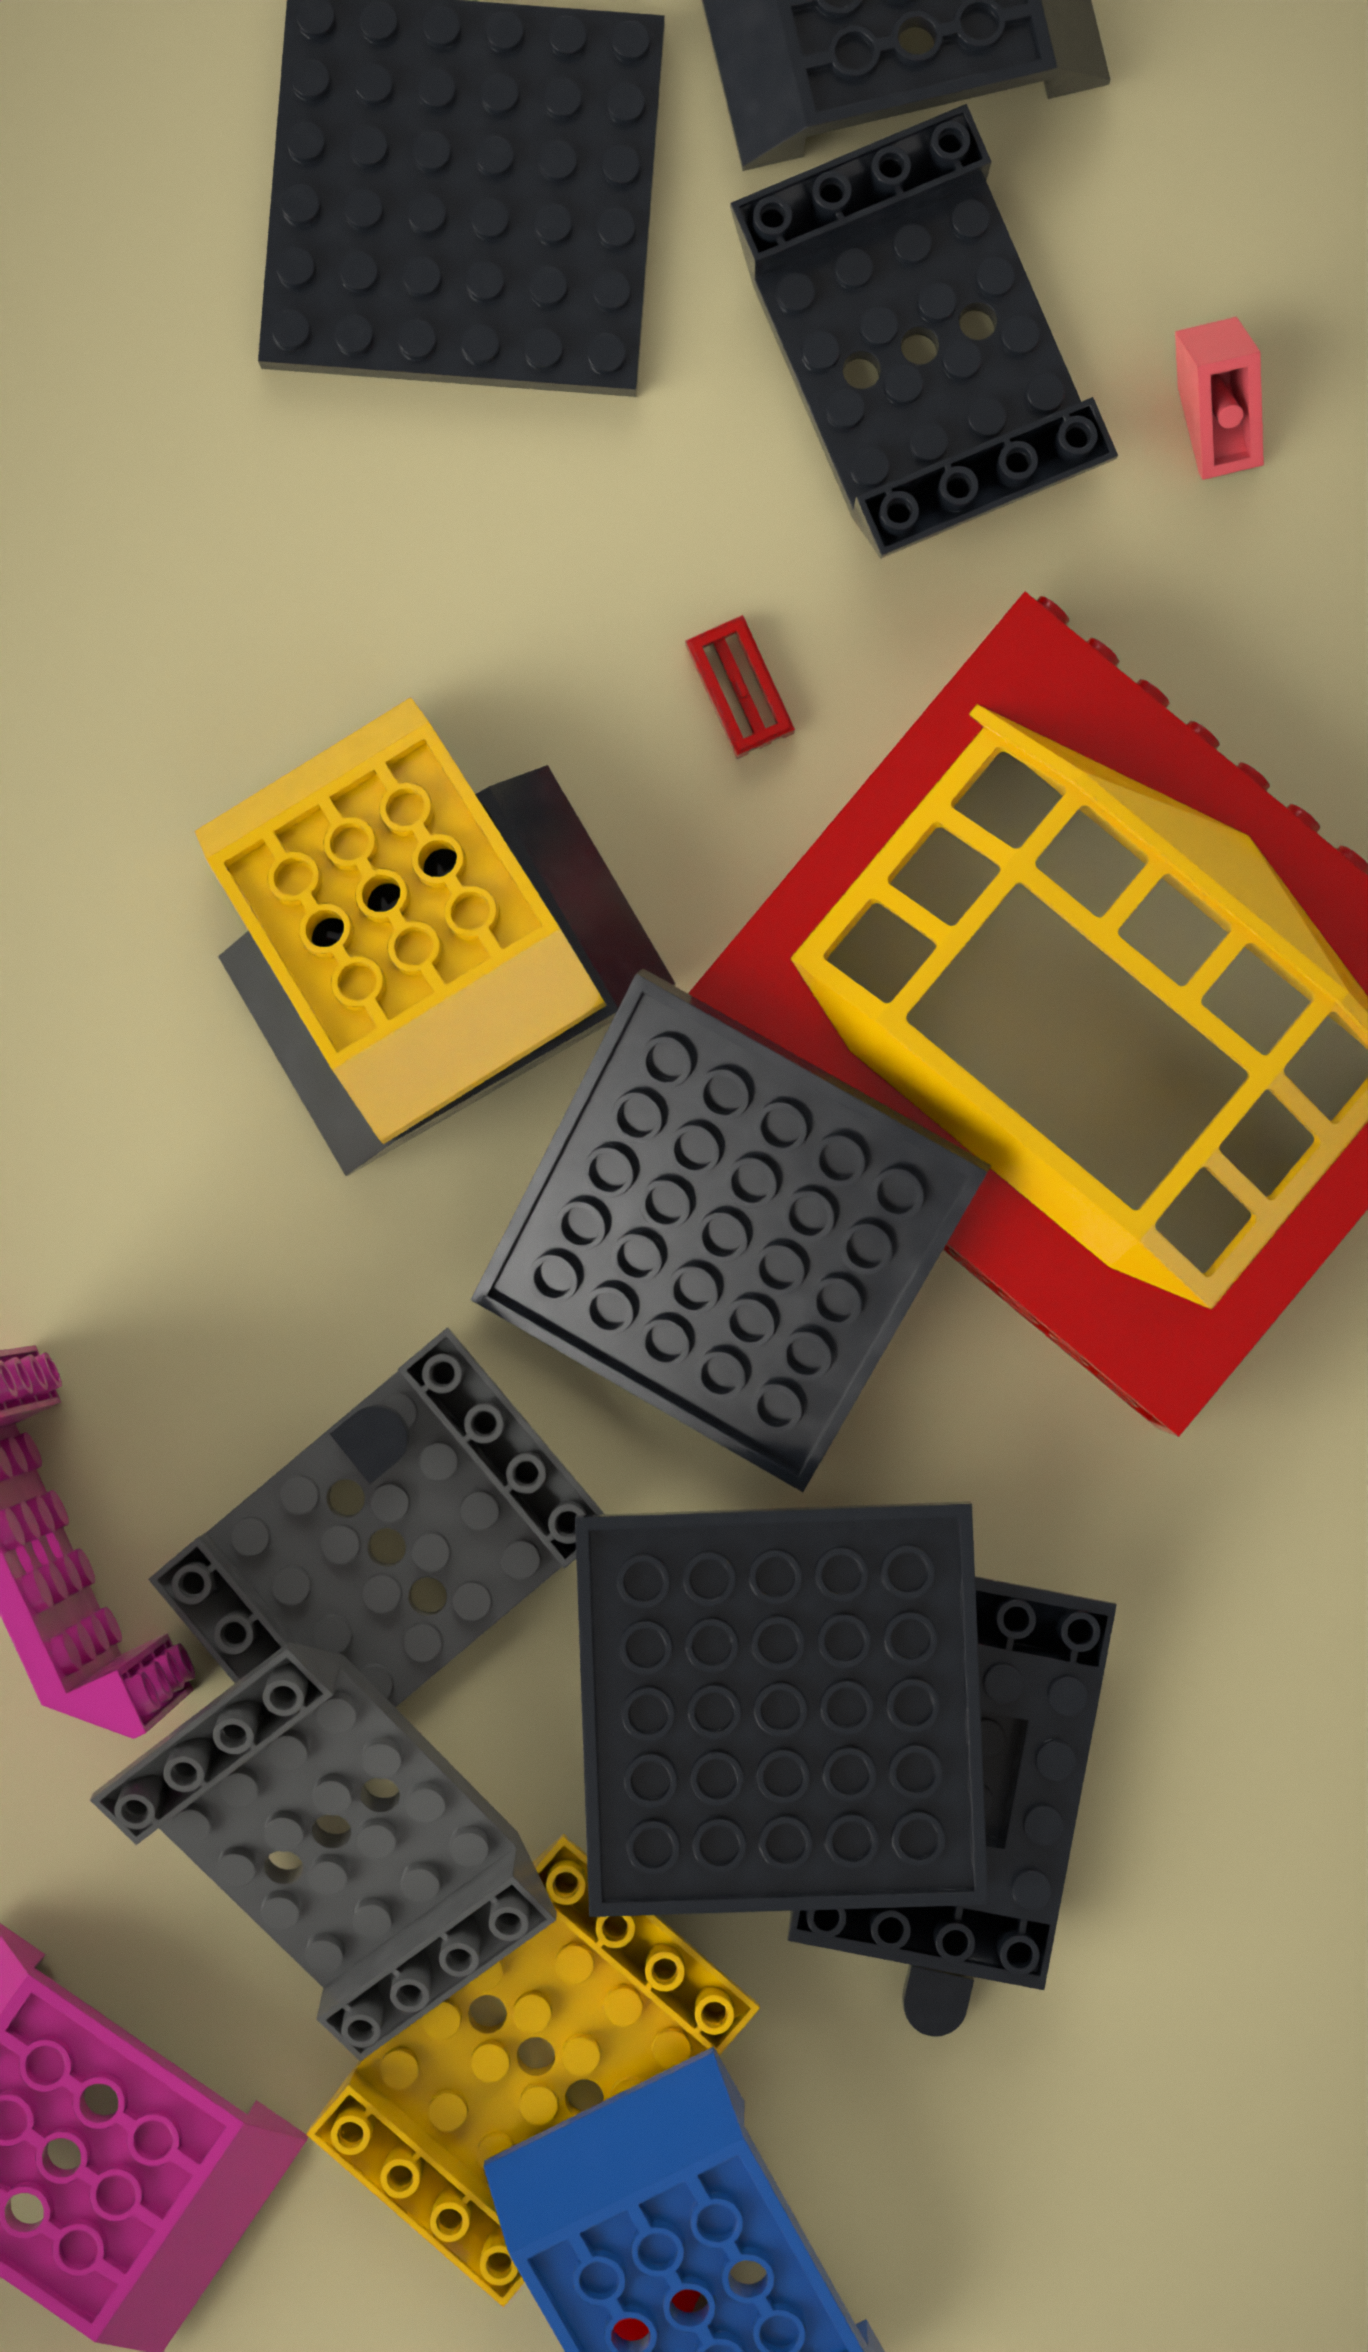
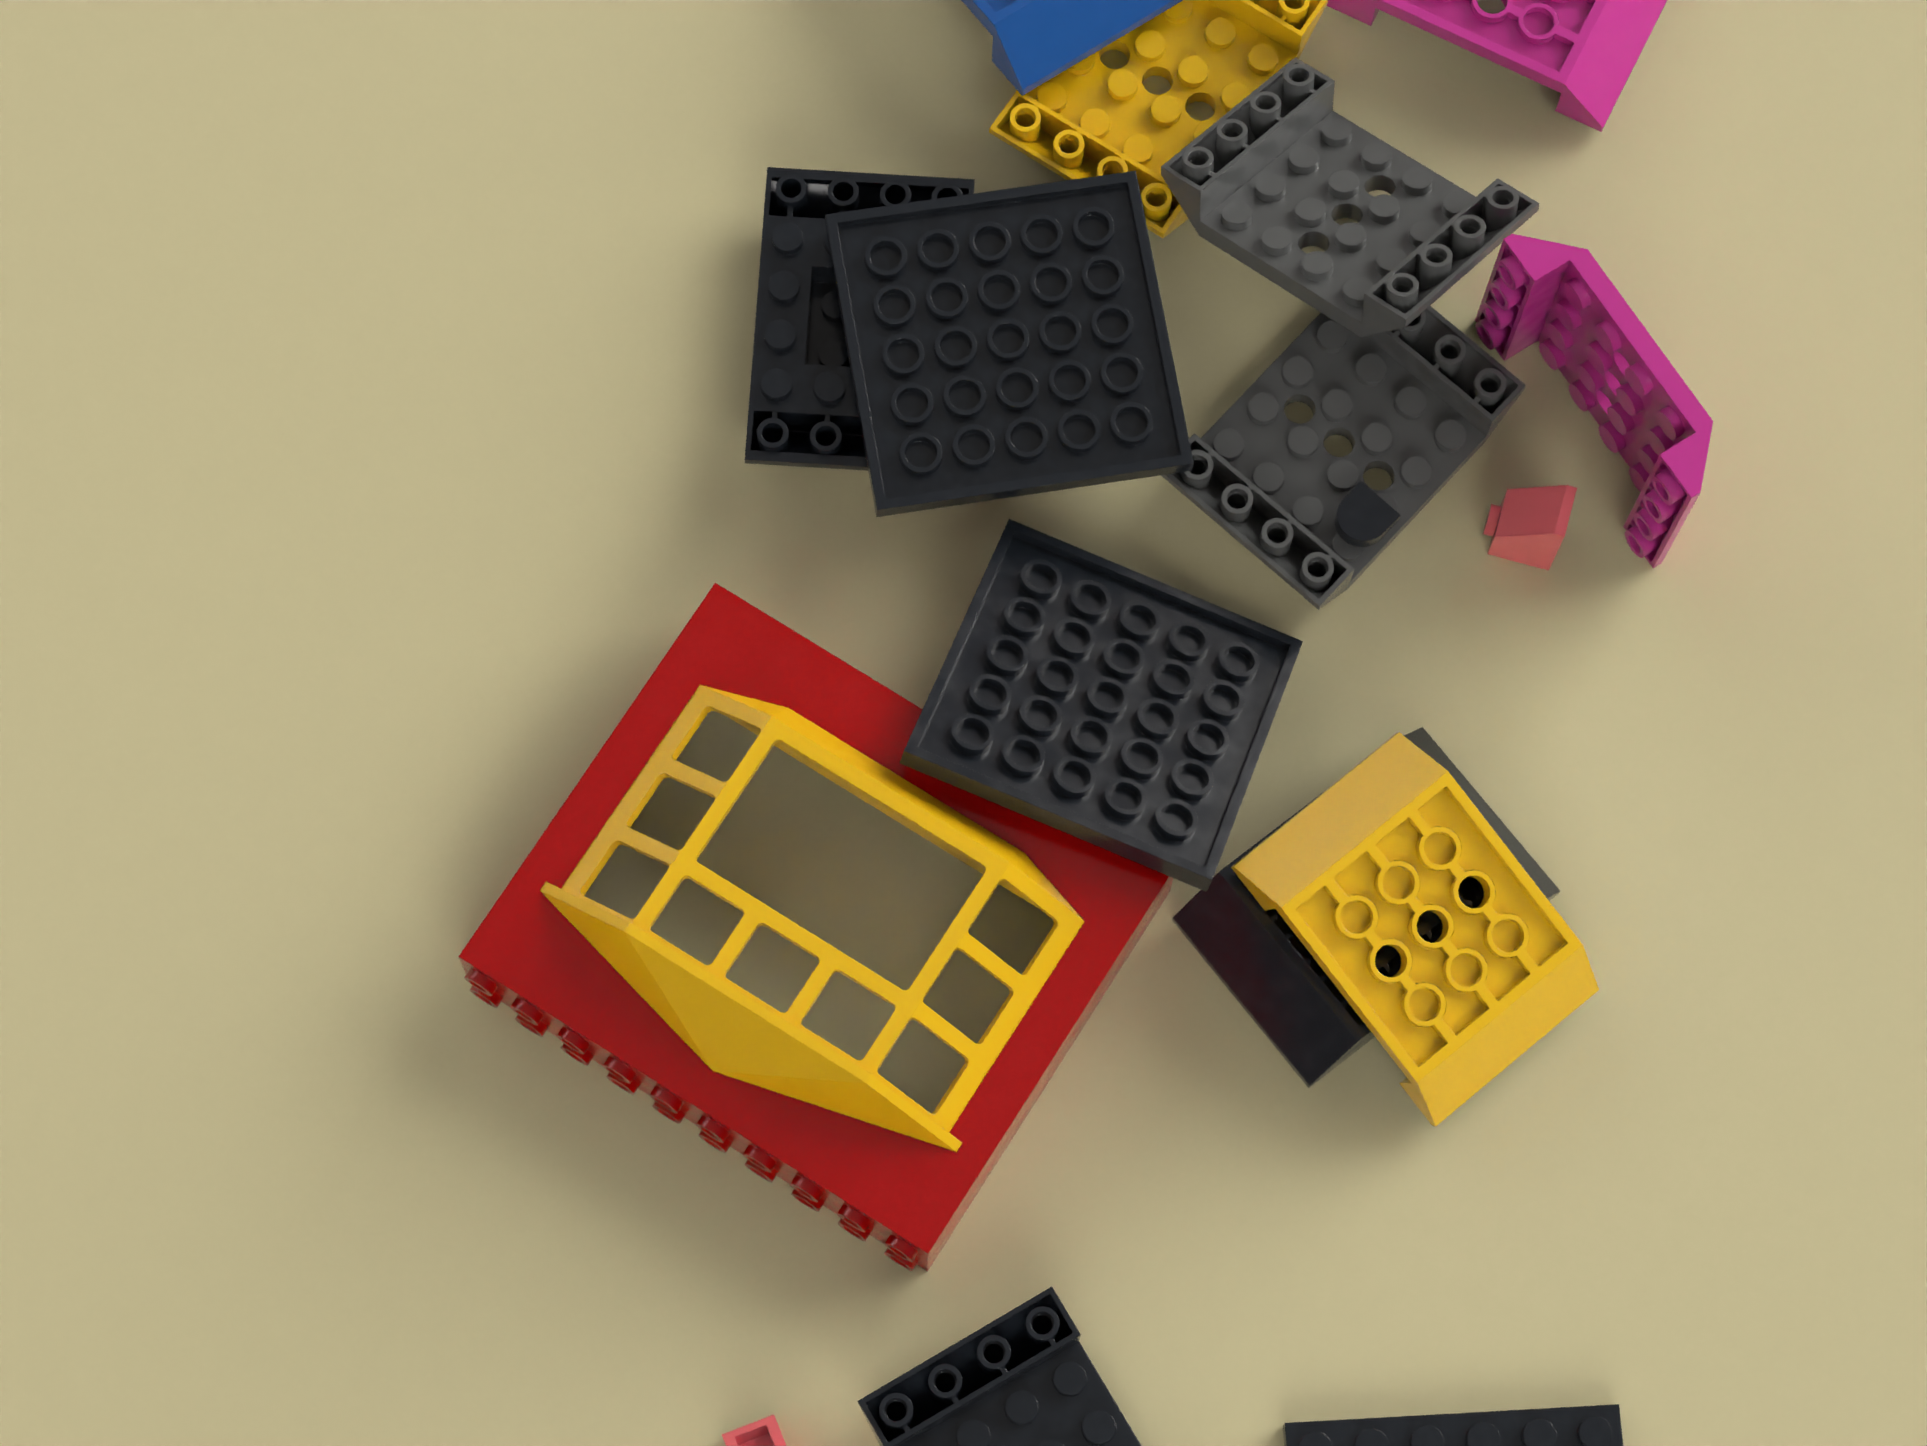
camera: 170 degrees right, 15 degrees down
(173, 1405) = (1530, 524): none -> coral slope
(761, 736) = (1179, 1218): red tile -> none
(935, 1999) = (847, 153): black tile -> none

